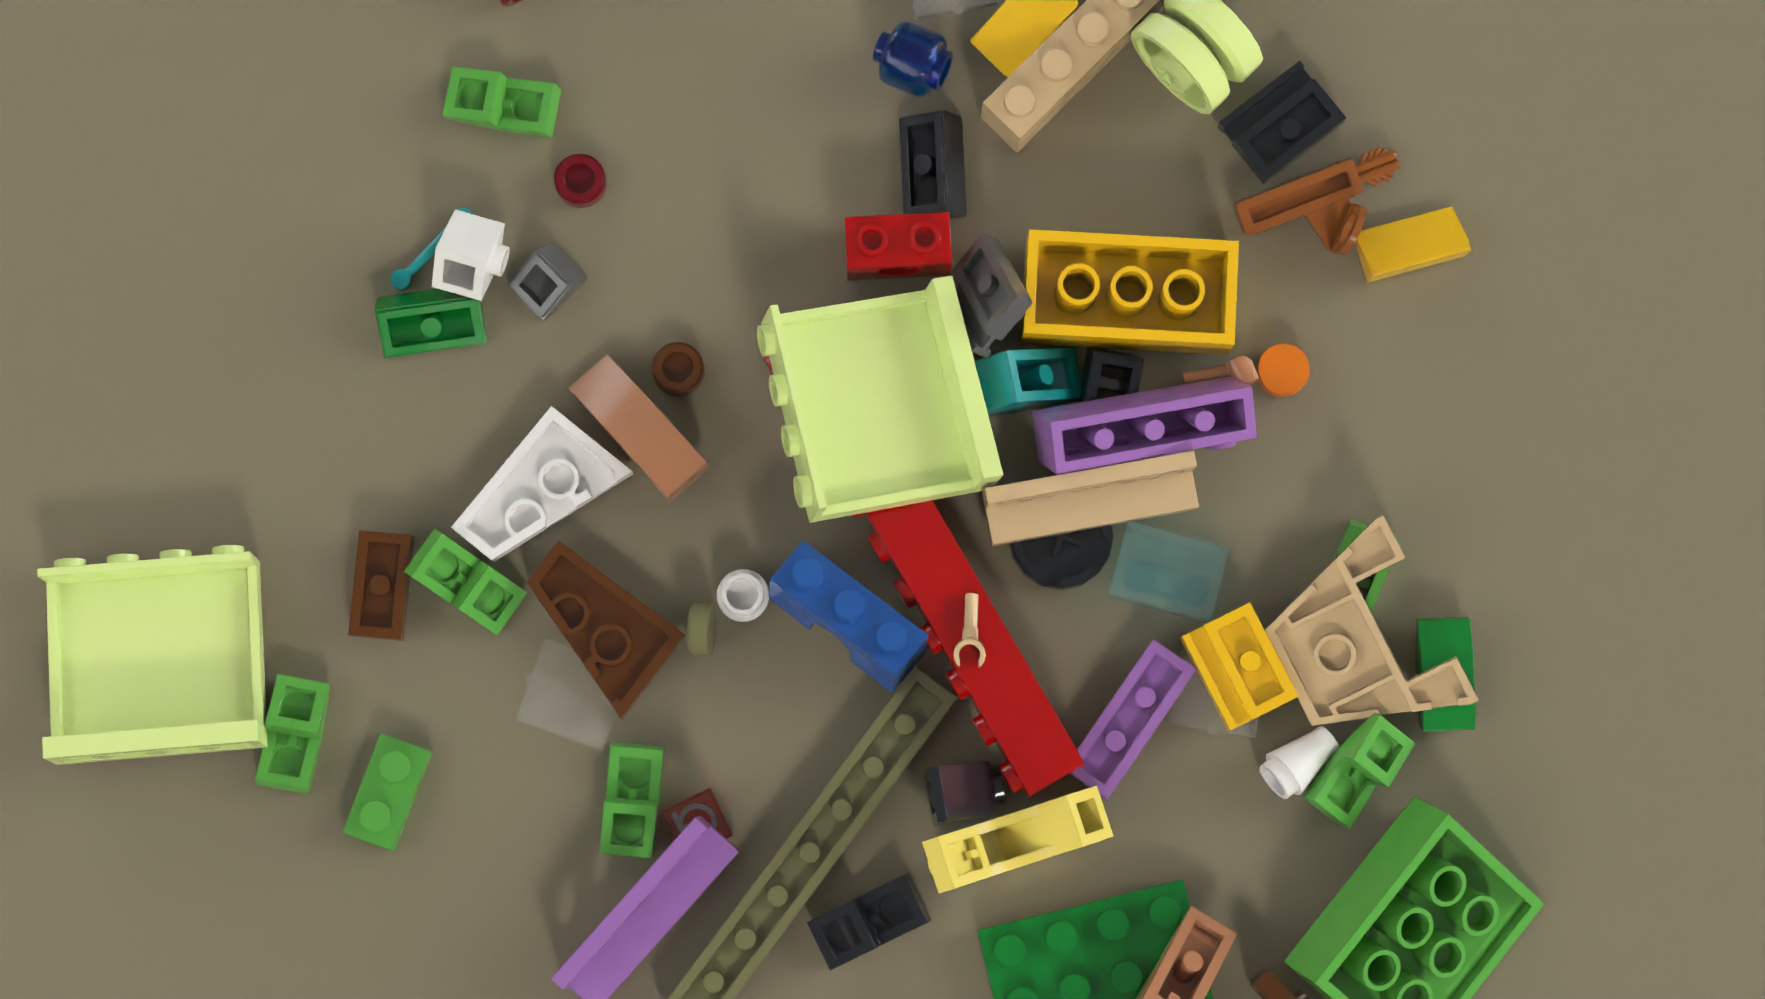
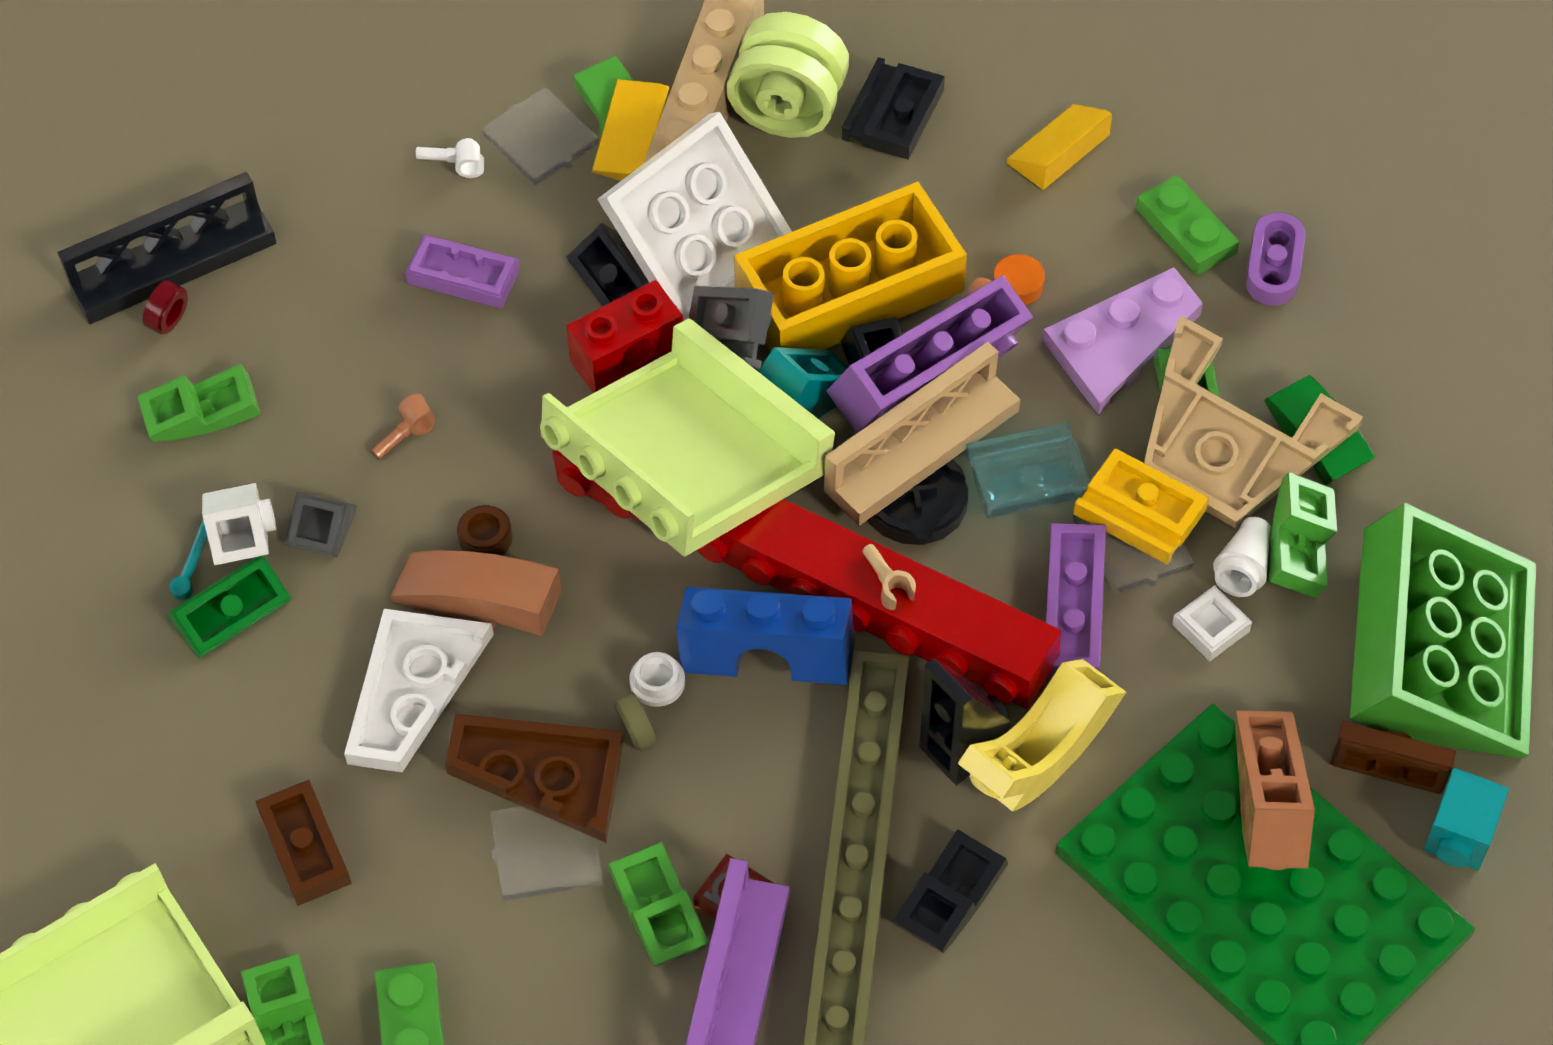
camera: 25 degrees left, 25 degrees down
(465, 581) = (384, 800): bright green slope -> none
(580, 180) = (306, 432): dark red tile -> none
(680, 221) = (417, 420): none -> nougat hand
(797, 88) = (463, 271): none -> medium lavender plate
(913, 59) = (551, 200): clear blue head -> none
(1023, 165) = (693, 211): none -> white plate
(1233, 802) = (1212, 623): none -> white tile
(1321, 199) = (966, 144): dark orange piece -> none
(1338, 478) = (1118, 336): none -> lavender wing
(1470, 396) = (1187, 225): none -> bright green plate
(1521, 482) = (1275, 262): none -> medium lavender plate

